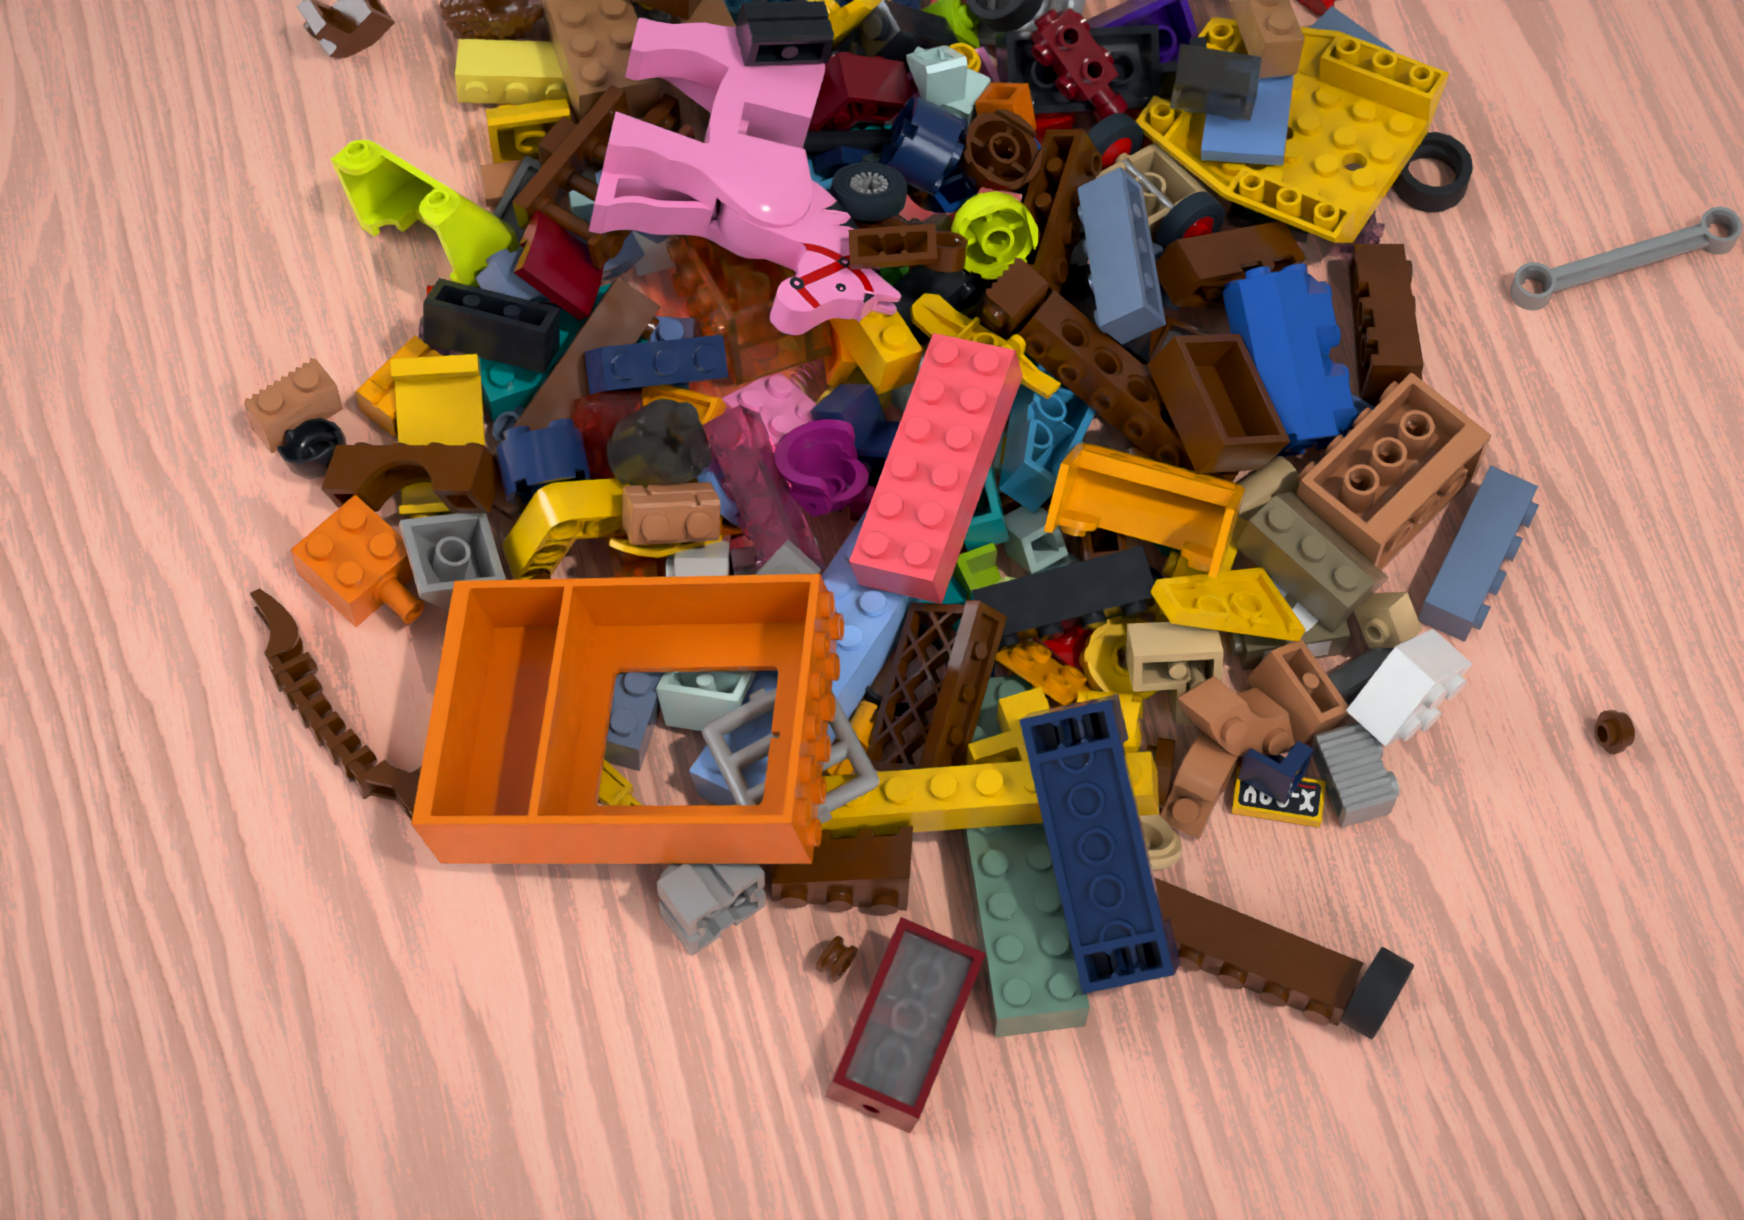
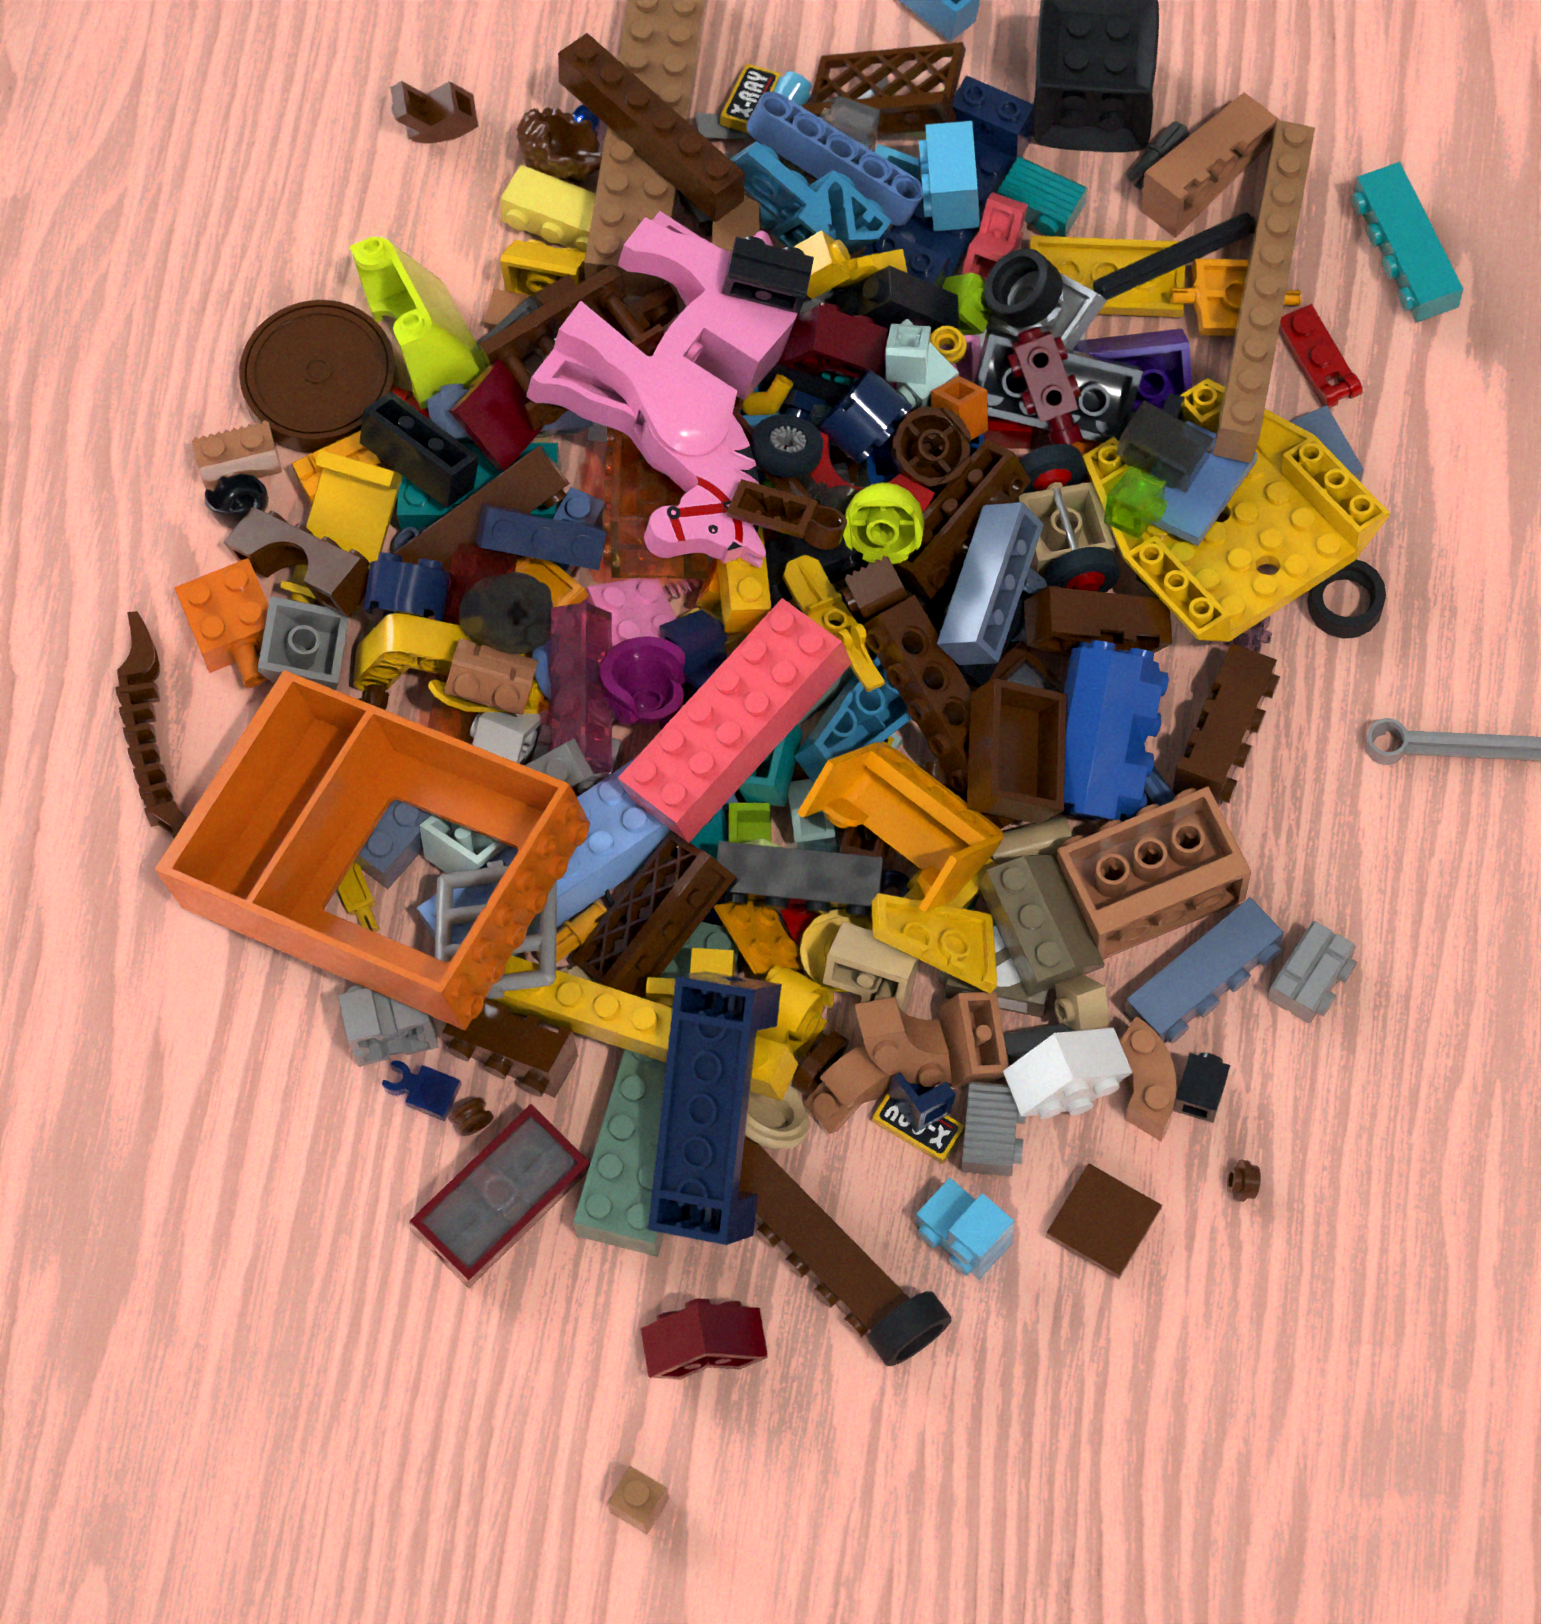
camera: 30 degrees right, 5 degrees up
(341, 299) = (315, 372): none -> reddish brown brick
(780, 950) = (427, 1092): none -> clear blue plate
(821, 159) = (769, 401): none -> yellow arm
(1178, 1084) = (703, 1338): none -> dark red brick
(1214, 140) = (1135, 502): none -> clear neon green brick
(1381, 877) = (966, 1228): none -> medium azure brick
(1493, 680) = (1152, 1079): none -> nougat brick
(1503, 820) = (1103, 1221): none -> reddish brown tile
(1531, 659) = (1202, 1086): none -> black brick
(1577, 516) = (1312, 973): none -> light grey brick

